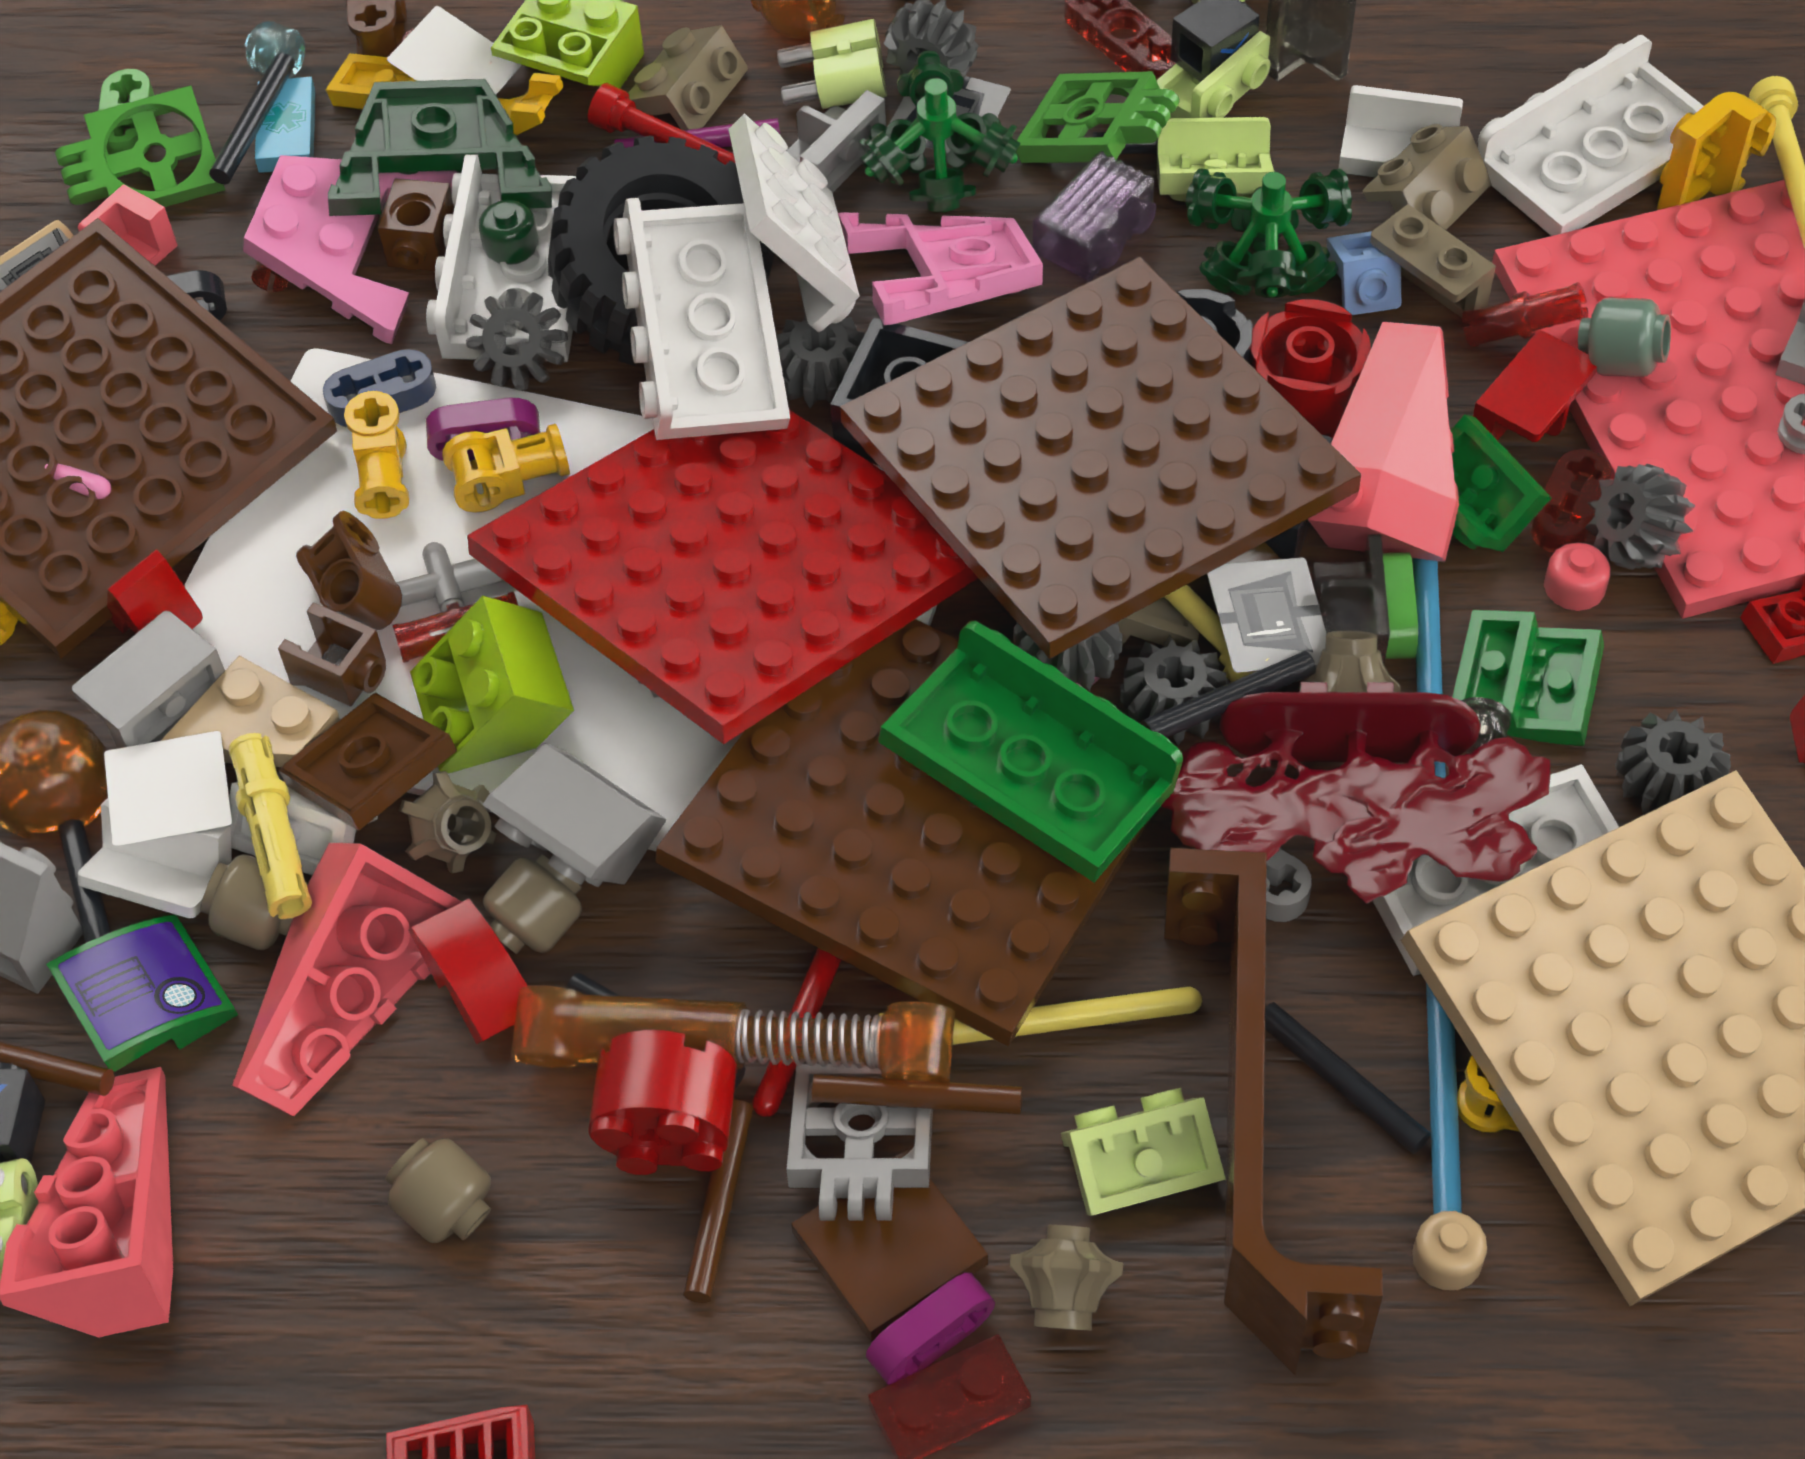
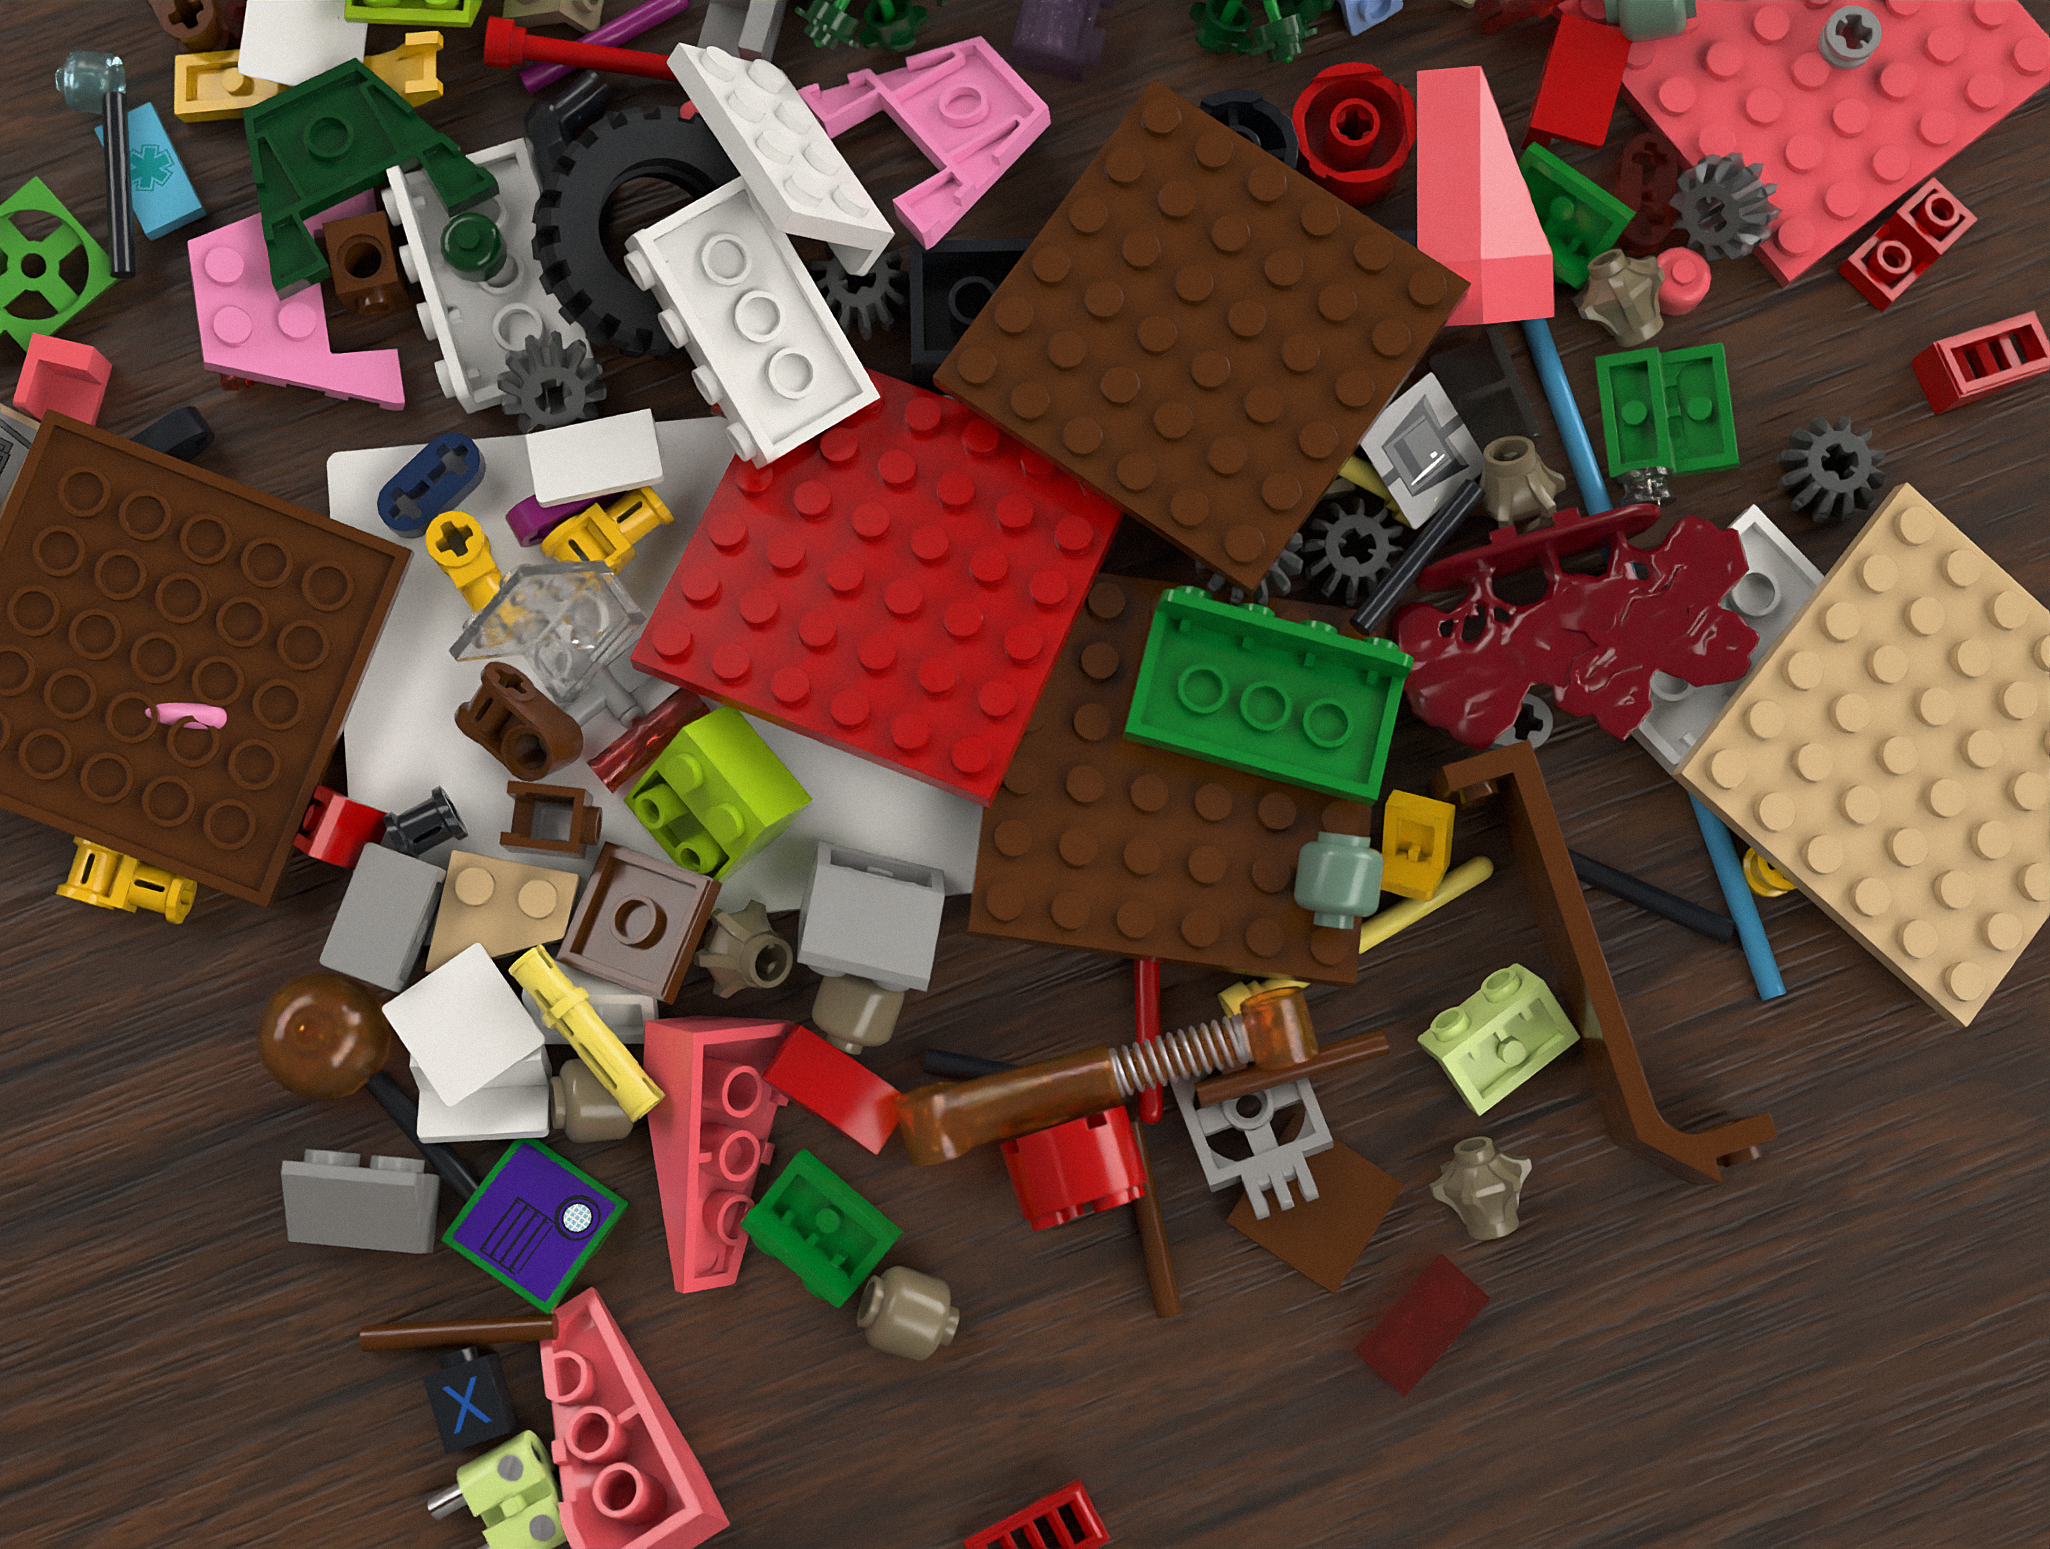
camera: 25 degrees left, 25 degrees up
(246, 616) = (425, 825): none -> black bush
(396, 1084) = (820, 1229): none -> green bracket
(413, 486) = (559, 618): none -> clear bracket
(527, 393) = (595, 458): none -> white panel
(930, 1328) = (1385, 1274): magenta beam -> none
(1030, 917) = (1338, 879): none -> sand green head
(1128, 942) = (1416, 844): none -> yellow bracket
(1401, 606) = (1533, 376): bright green beam -> none
(1449, 1250) = (1786, 1027): tan piece -> none
(1515, 561) = (1623, 296): none -> dark tan rock

